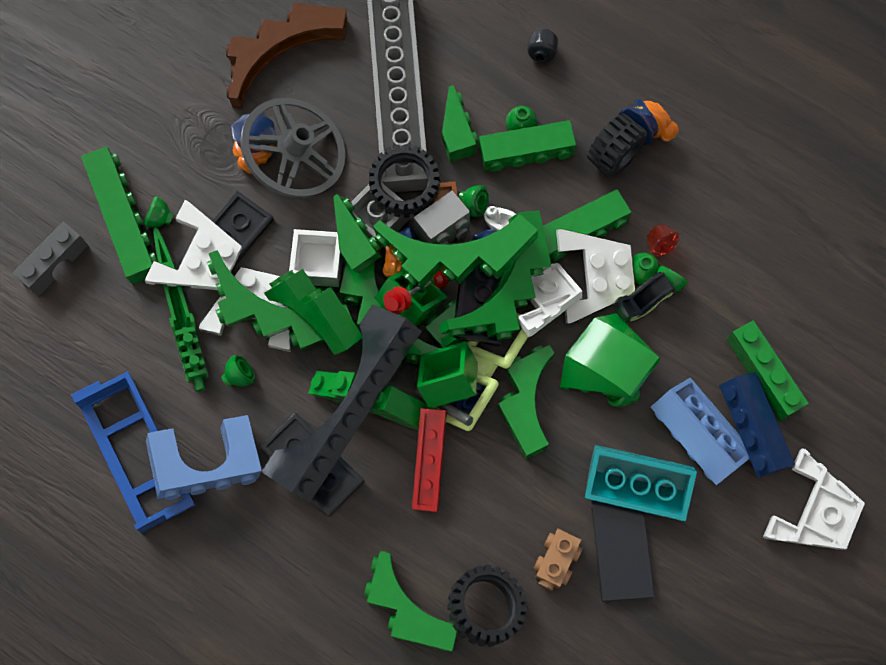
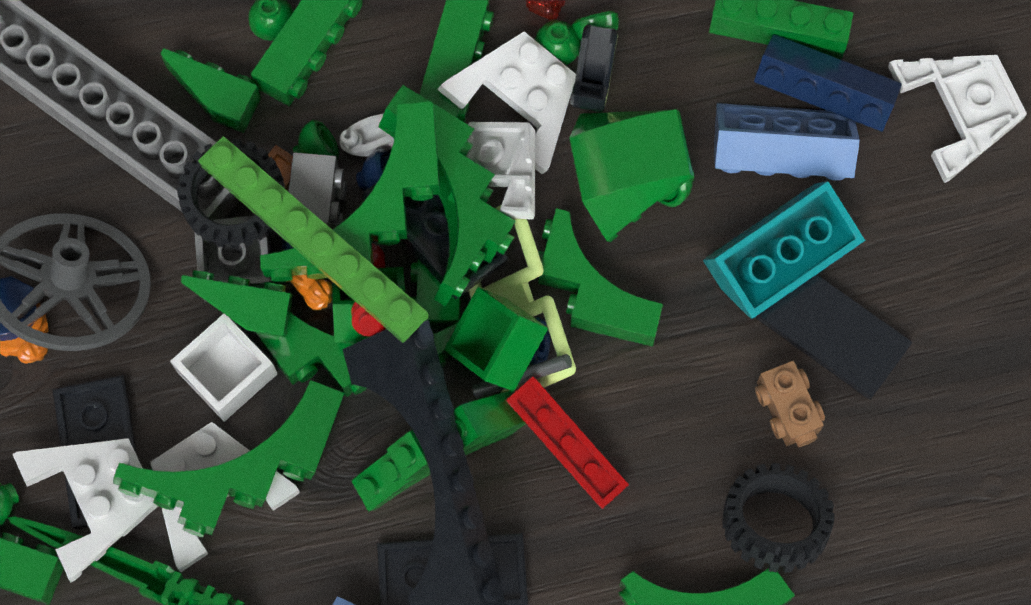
camera: 50 degrees left, 0 degrees up
(238, 372) = (274, 568): green brick -> none
(318, 307) = (294, 409): green arch -> none
(410, 239) = (314, 239): none -> bright green plate

